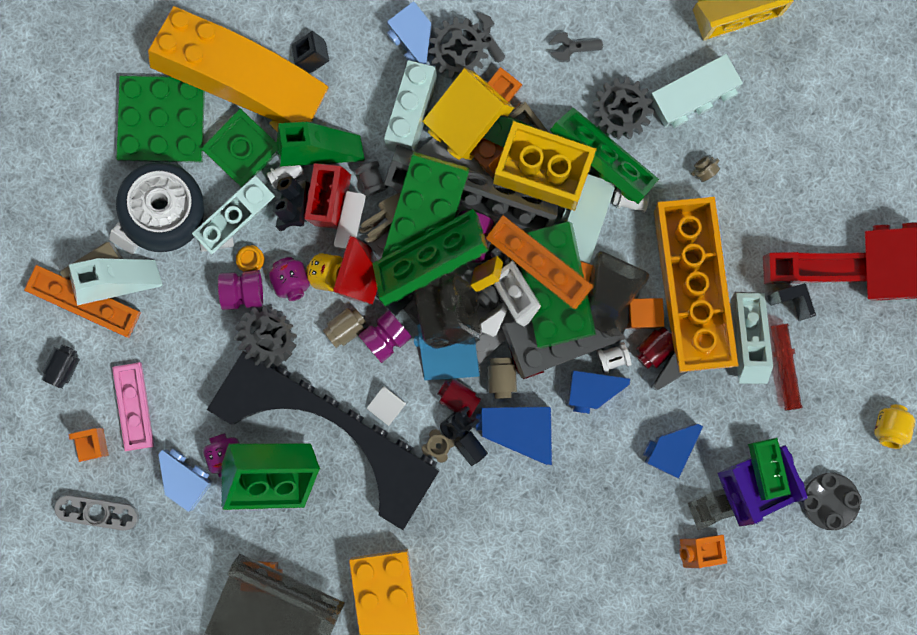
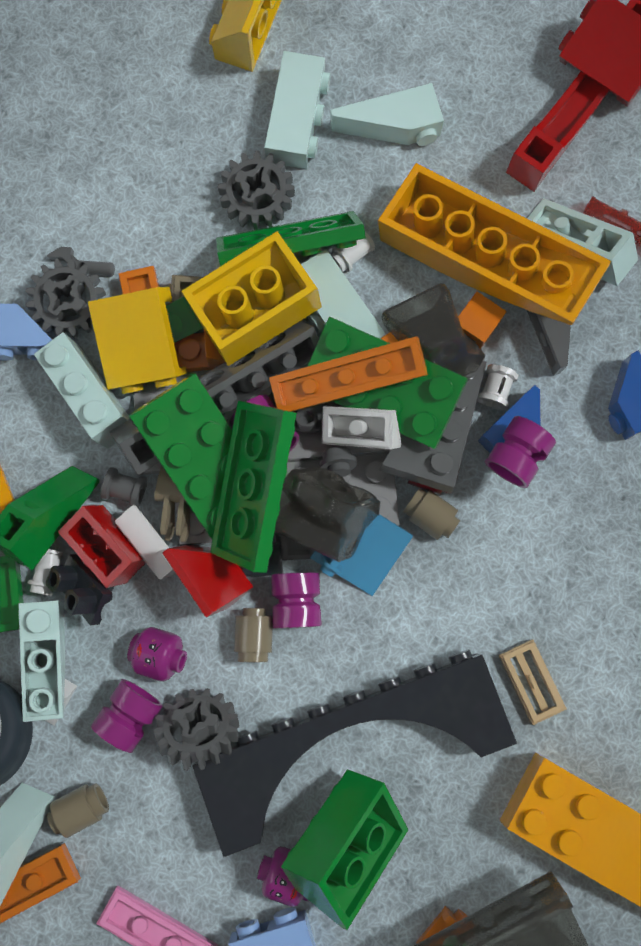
camera: 50 degrees left, 5 degrees down
(165, 305) = (77, 810): none -> dark tan brick
(249, 258) = (102, 679): light orange plate -> none
(323, 271) = (178, 611): yellow head -> none
(386, 406) = (368, 656): white slope -> none
(430, 447) = (449, 645): dark tan plate -> none
(437, 537) = (519, 689): none -> tan tile
(456, 428) = (451, 598): black bar -> none
(457, 395) = (419, 574): dark red brick -> none
(486, 274) = (316, 443): yellow tile -> none
(492, 320) = (368, 473): white slope -> none
(519, 429) = (499, 537): blue slope -> none
(574, 46) = (157, 193): dark grey bar -> none
(577, 400) = (523, 448): none -> magenta wheel
(655, 348) = (520, 338): dark red brick -> none
(706, 168) = (379, 157): dark tan plate -> none
(742, 159) = (397, 117): none -> light aqua slope
(801, 299) = (583, 163): black panel -> none

